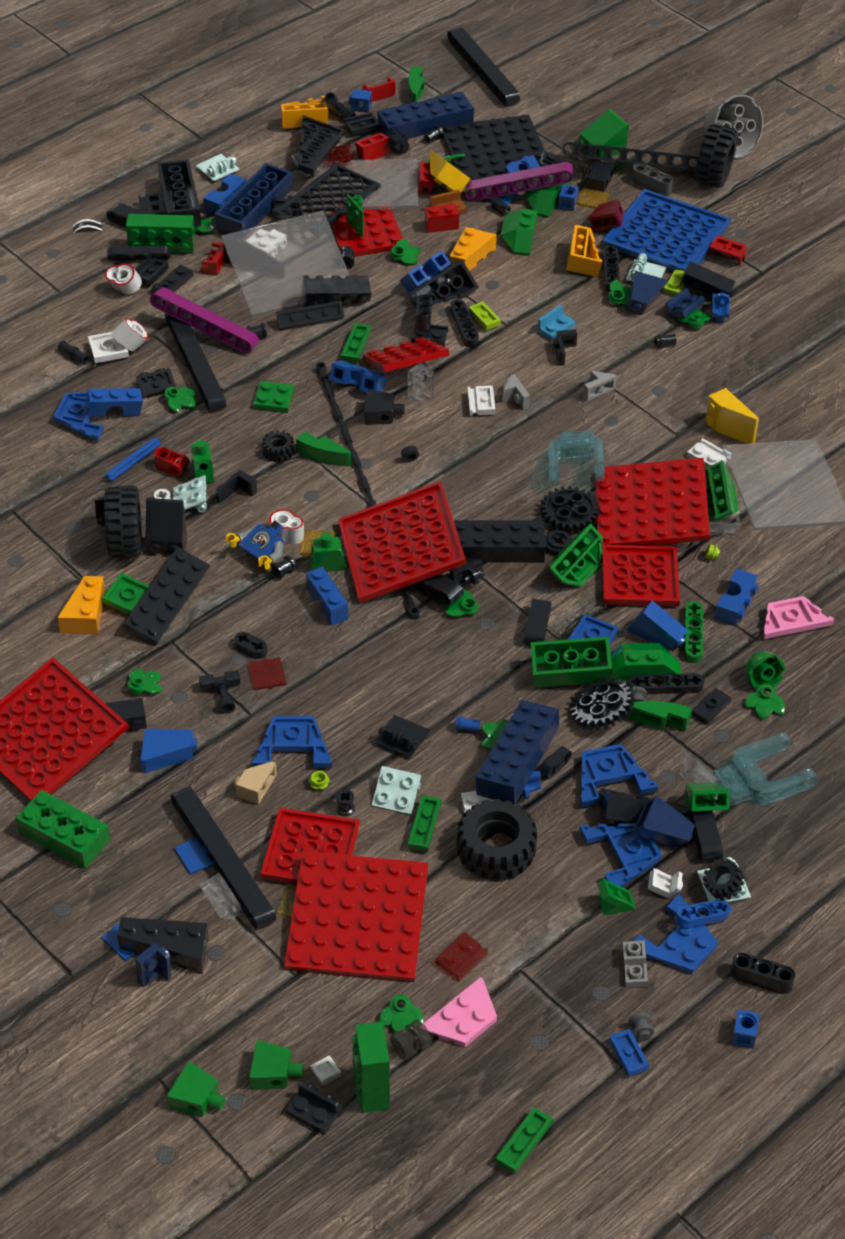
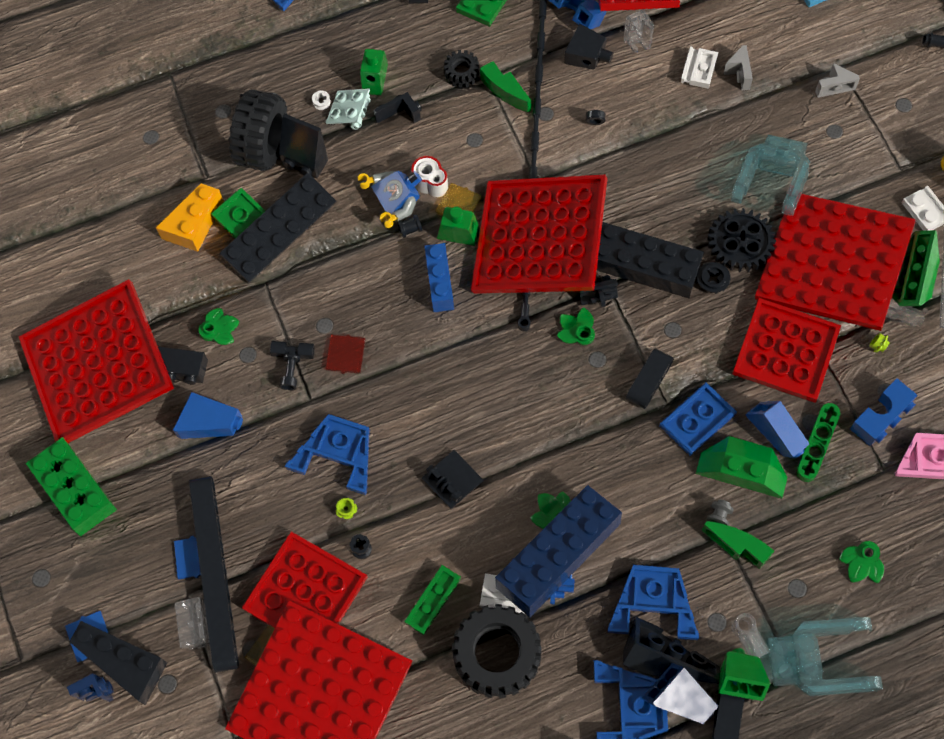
camera: 25 degrees right, 20 degrees up
(132, 459) = (309, 44): blue axle -> none
(170, 461) = (346, 60): red piece -> none
(249, 644) = (337, 316): black beam -> none
(255, 782) = (280, 490): tan slope -> none
(396, 790) = (419, 548): light aqua hinge -> none
(440, 589) = (562, 307): black beam -> none
(467, 724) = (525, 486): blue pin -> none
(556, 762) = (600, 567): black beam -> none
(564, 339) = (820, 10): black bracket -> none
(571, 661) = (659, 434): green brick -> none
(578, 558) = (723, 309): green wedge -> none
(602, 704) = (682, 527): black gear -> none
(665, 681) = (760, 504): black beam -> none
(711, 706) = (800, 547): black plate -> none
(764, 668) = (876, 523): green cylinder -> none

